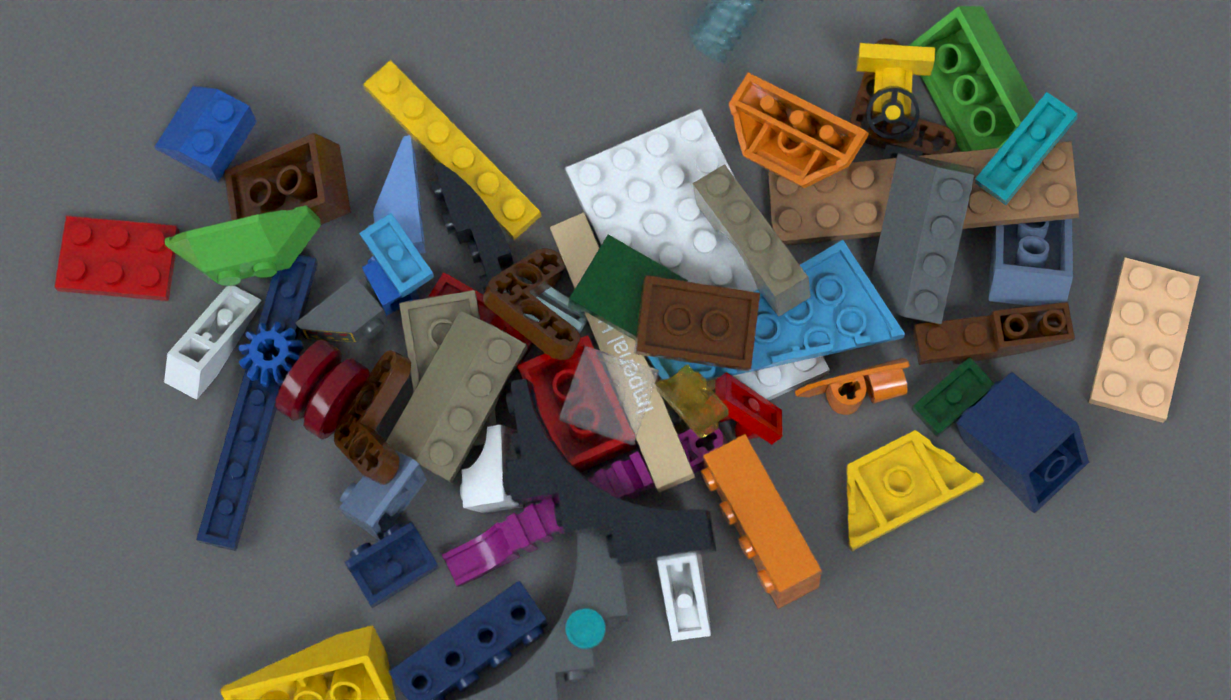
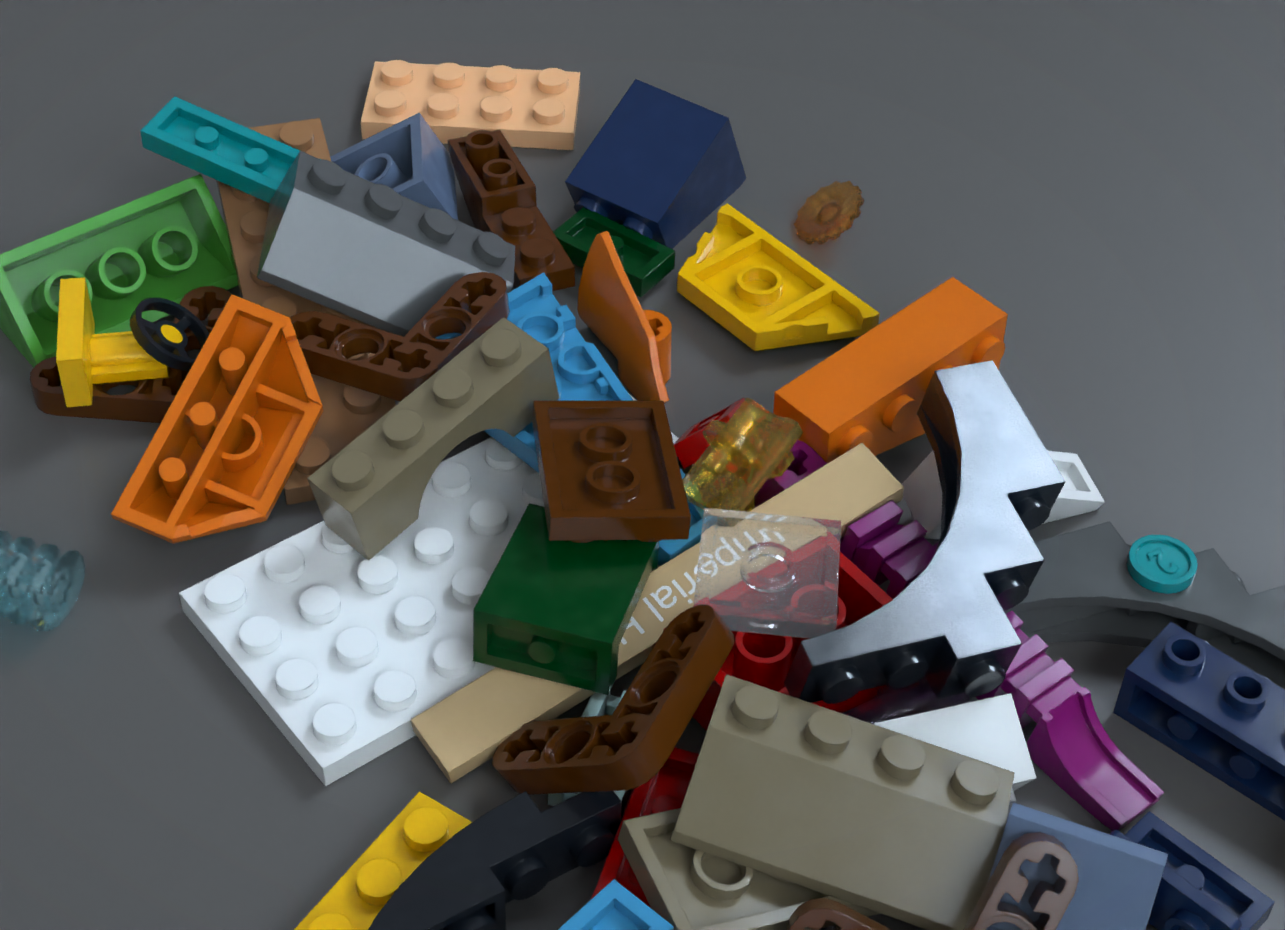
camera: 110 degrees left, 30 degrees down
(832, 242) = (402, 361): none -> reddish brown beam
(970, 551) = (829, 212): none -> clear orange piece

